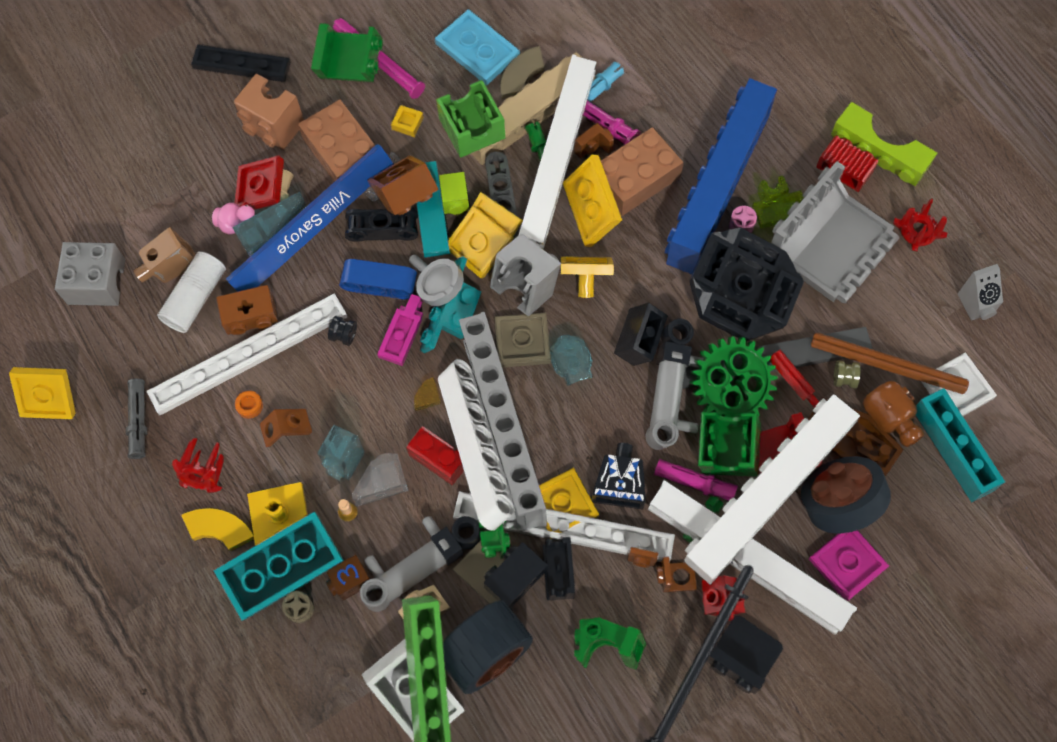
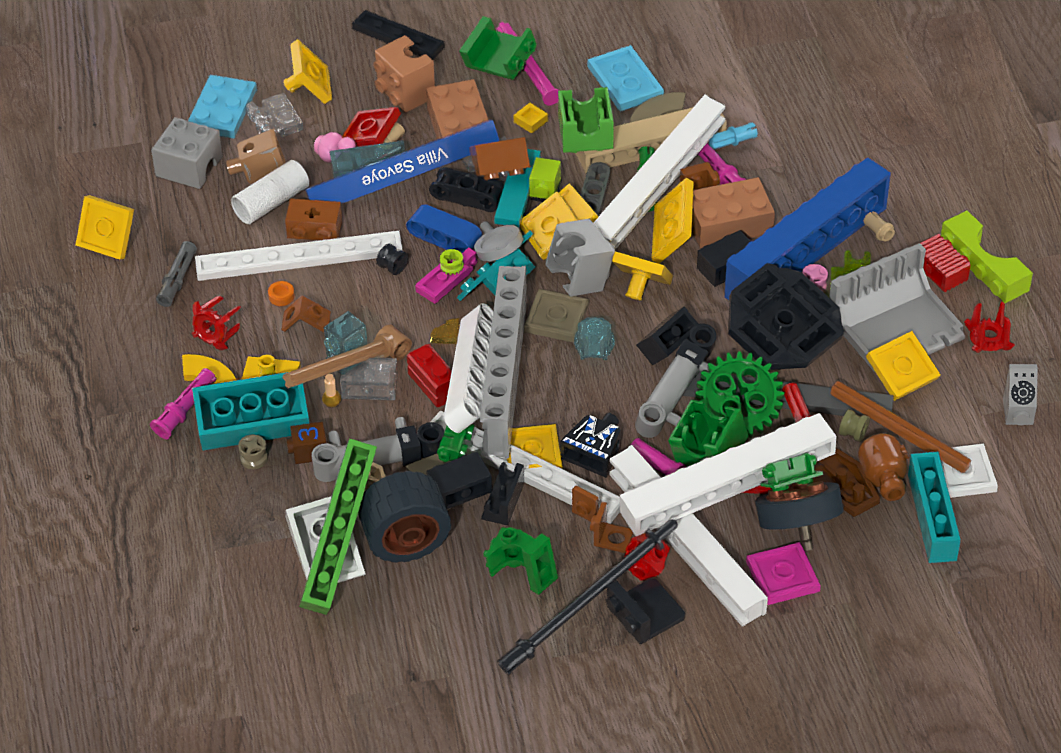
camera: 20 degrees right, 20 degrees down
(101, 201) = (223, 104): none -> medium azure plate
(164, 192) = (279, 111): none -> clear plate
(174, 139) = (309, 72): none -> yellow tile
(203, 588) = (176, 411): none -> dark pink pin
(379, 433) = (387, 343): none -> medium nougat piece
(396, 314) = (455, 266): none -> lime bush
(654, 223) = (713, 257): none -> black brick
(775, 141) = (883, 230): none -> tan pin
(831, 472) = (780, 476): none -> green hinge
(863, 292) = (903, 365): none -> yellow plate

